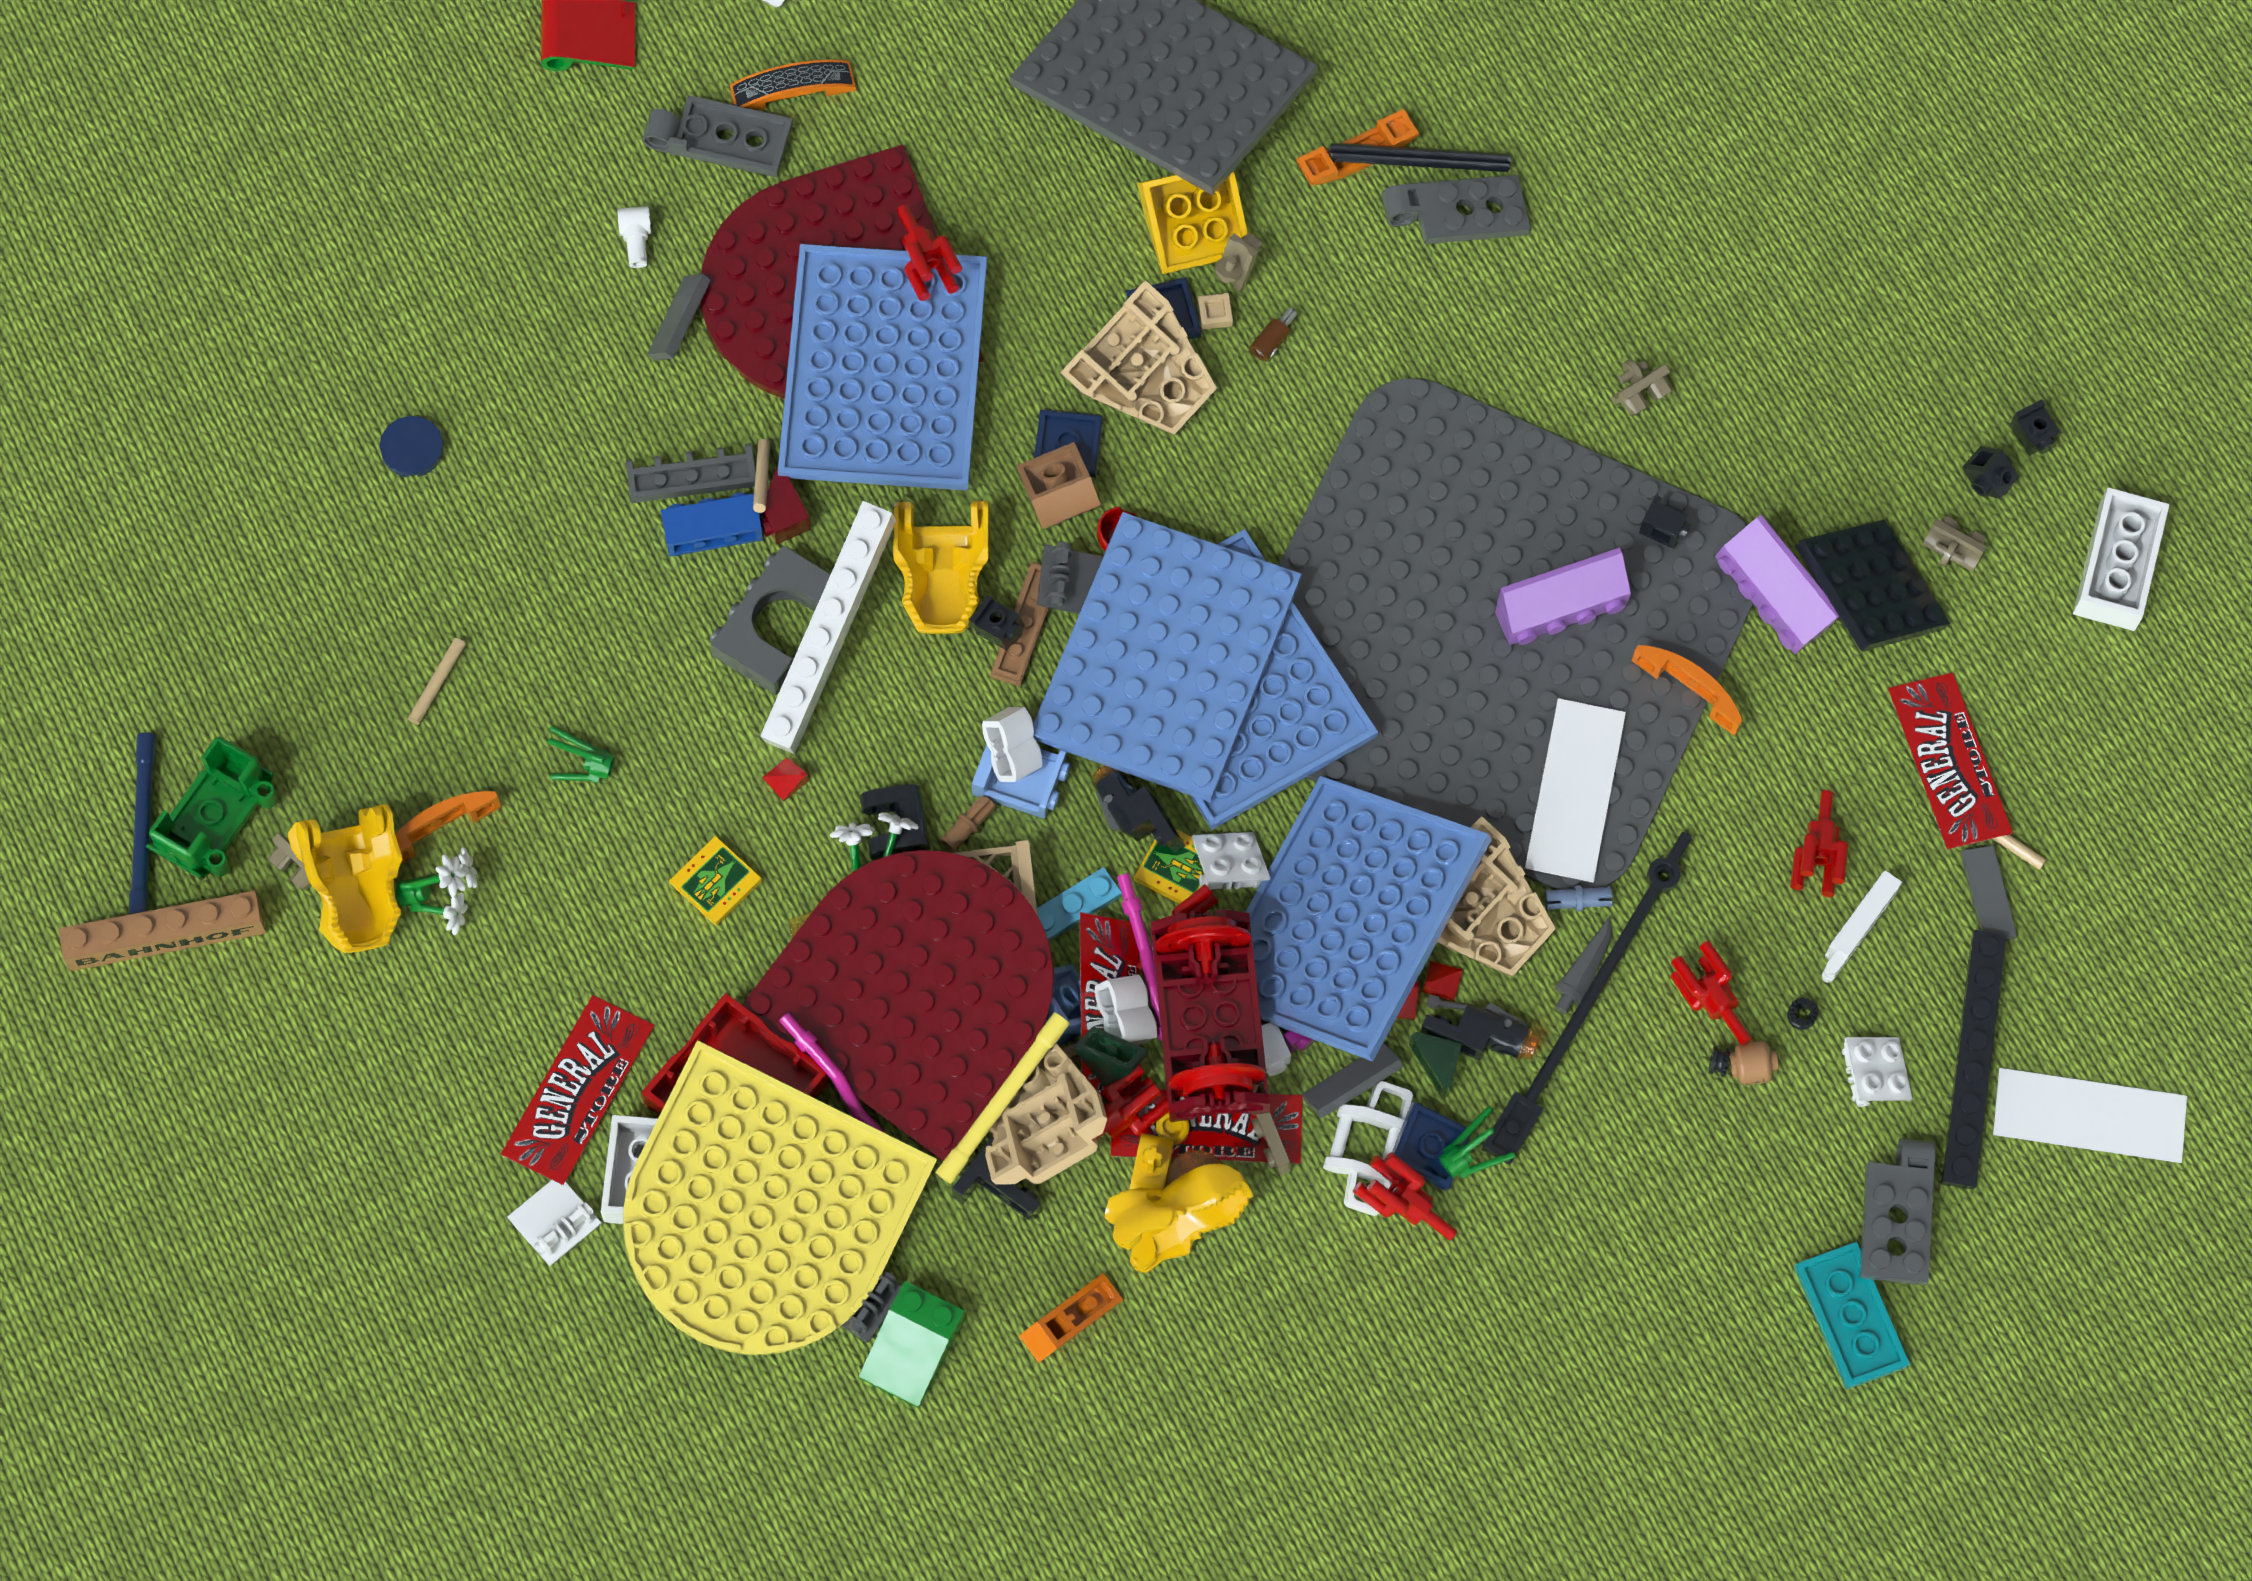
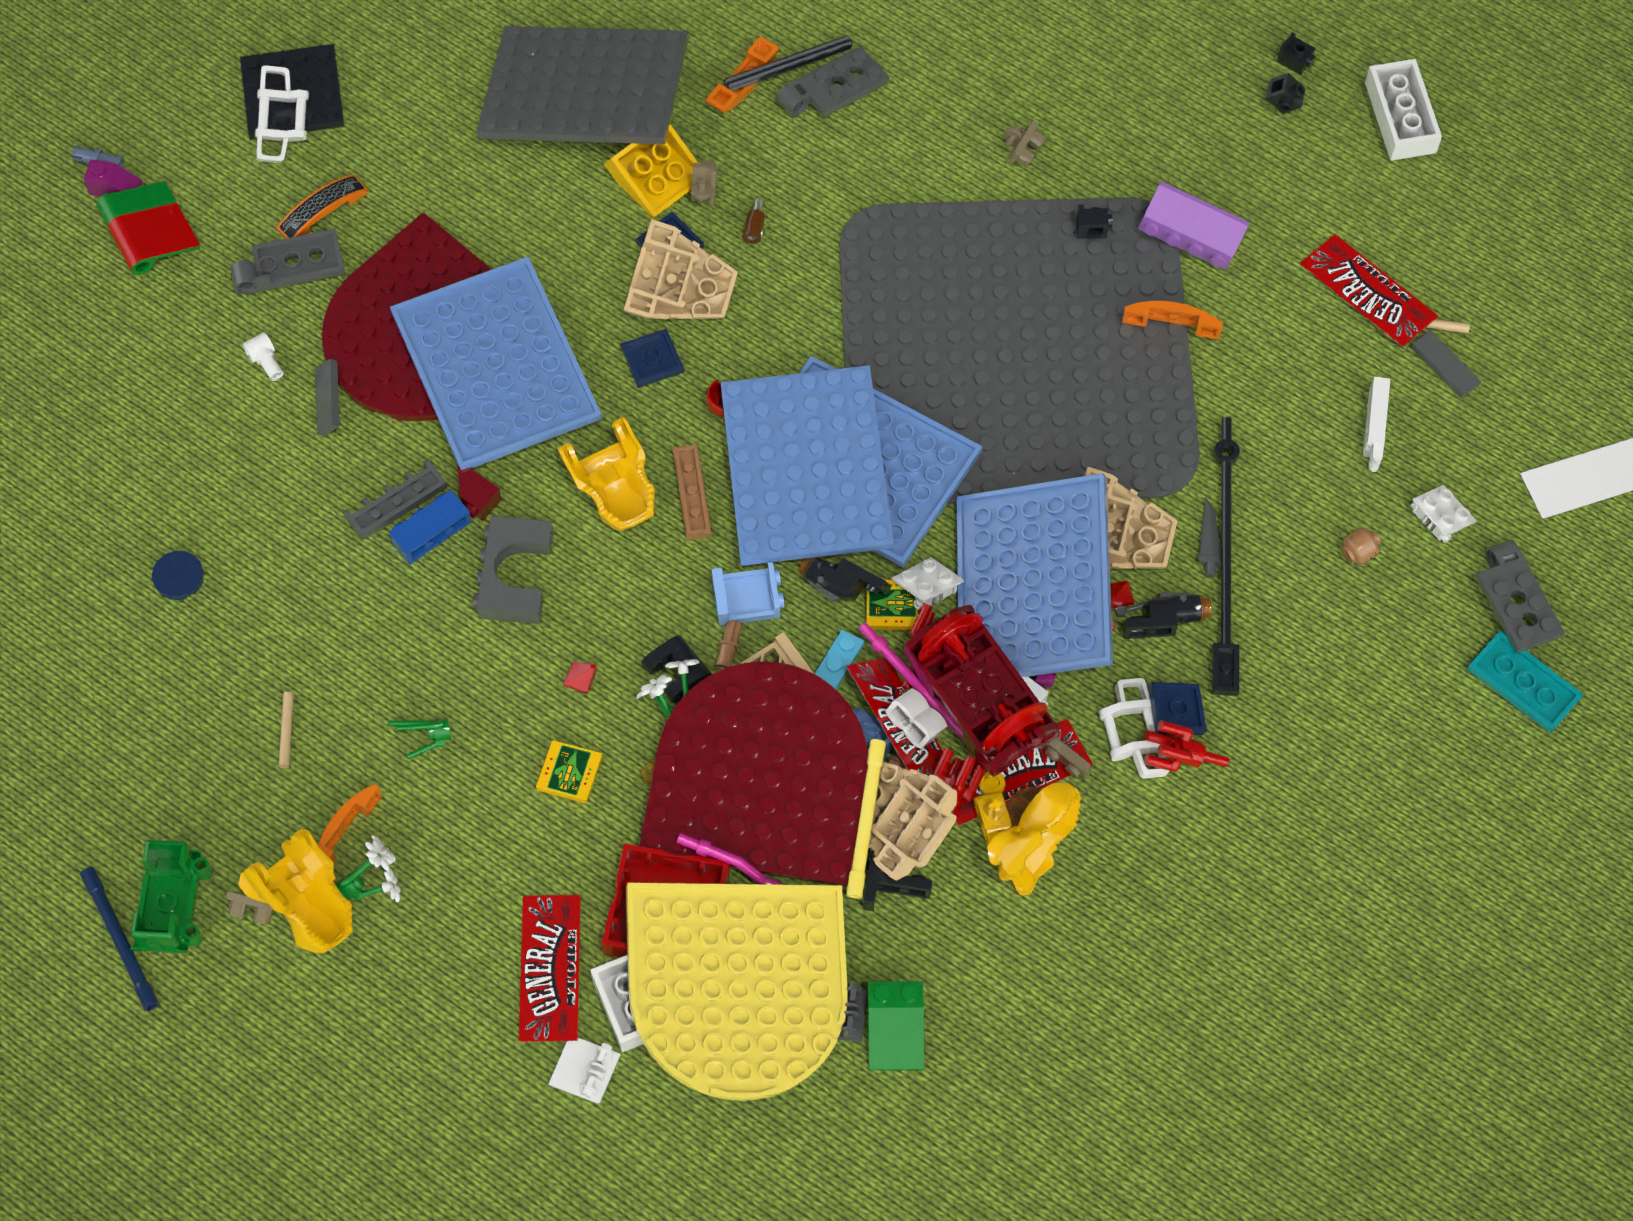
camera: 25 degrees left, 5 degrees down
(162, 930) = (175, 1005): medium nougat brick -> none
(761, 476) = (448, 476): tan bar -> none
(828, 627) = (557, 555): white brick -> none
(927, 254) = (487, 272): red plant -> none
(997, 623) = (677, 505): black brick -> none
(1012, 744) = (733, 573): white brick -> none
(1058, 485) = (663, 387): medium nougat slope -> none
(1066, 577) = (705, 446): dark grey hinge -> none
(1070, 1317) = (997, 951): orange slope -> none
(1109, 1055) = (924, 753): clear green slope -> none
(1215, 311) = (705, 224): tan plate -> none
(1351, 1081) = (1097, 692): dark grey tile -> none
(1437, 1058) = (1148, 647): clear green slope -> none
(1457, 1157) = (1203, 707): green plant -> none
(1563, 597) = (1055, 299): slope -> none
(1575, 790) = (1135, 424): white sticker -> none
(1578, 898) = (1179, 494): sand blue pin -> none
(1711, 990) = (1305, 511): red plant -> none
(1718, 1060) = (1336, 556): black bush -> none
(1803, 1004) = (1368, 493): black bush -> none
(1821, 849) = (1322, 386): red plant -> none
(1872, 585) = (1255, 197): black plate -> none
(1955, 545) = (1289, 150): dark tan hips -> none
(1973, 1059) = (1502, 475): black plate -> none

